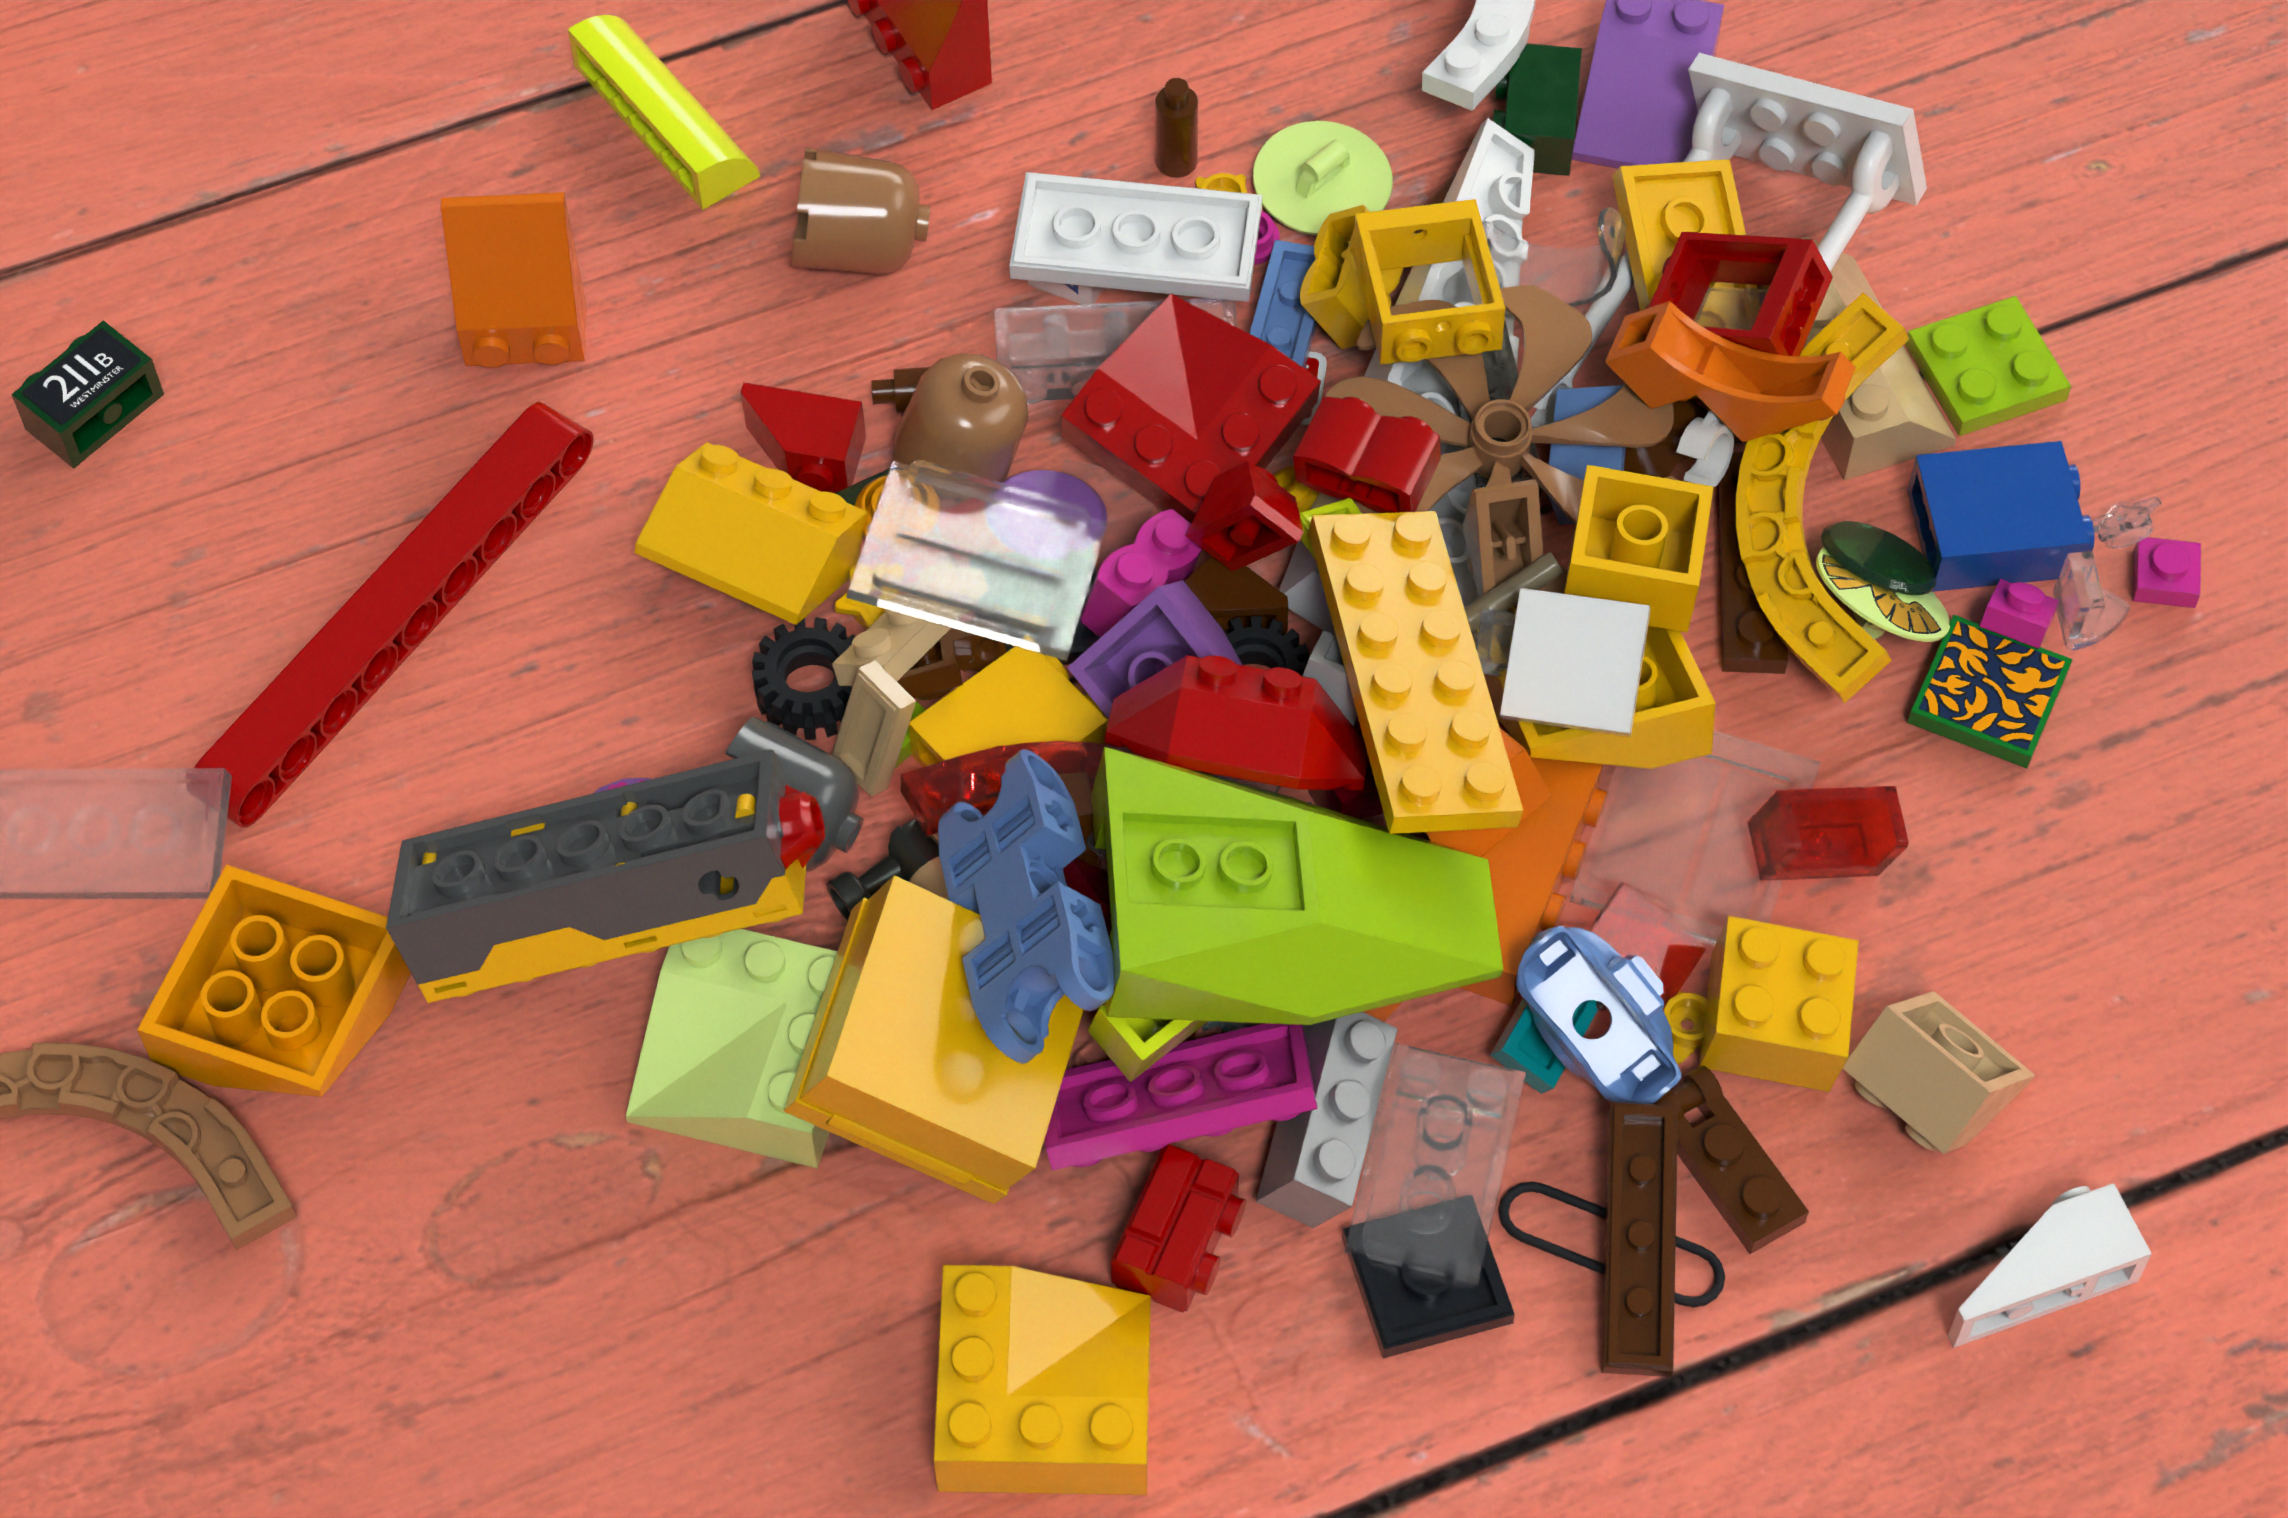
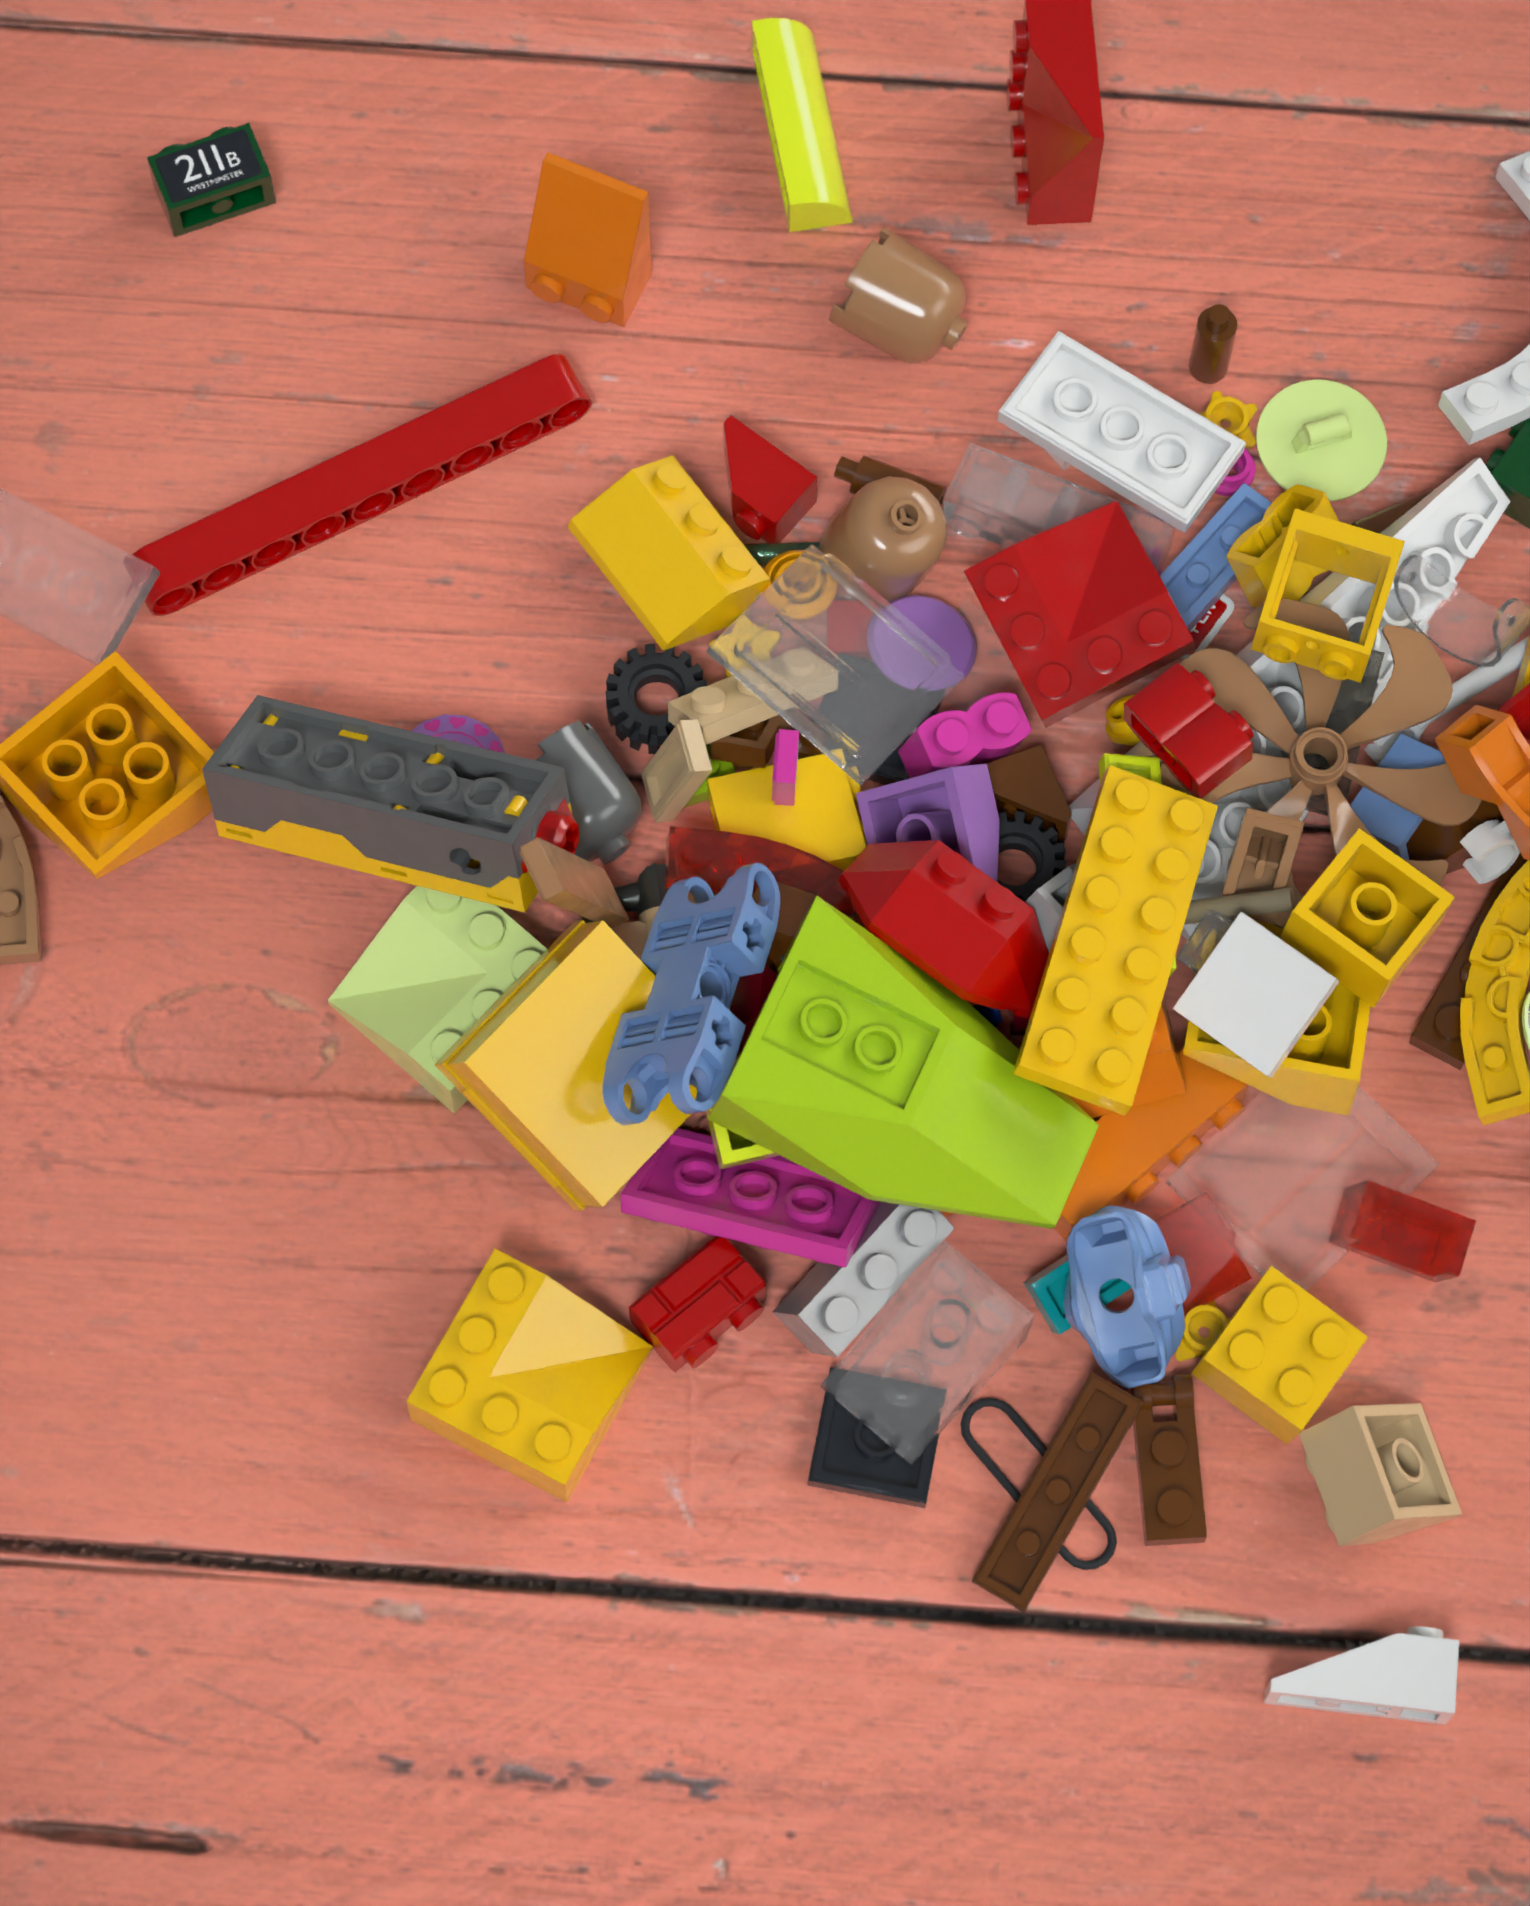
camera: 25 degrees right, 10 degrees up
(838, 848) = (572, 883): none -> medium nougat tile
(985, 671) = (785, 767): none -> dark pink tile
(1245, 517) = (1066, 733): red slope -> none

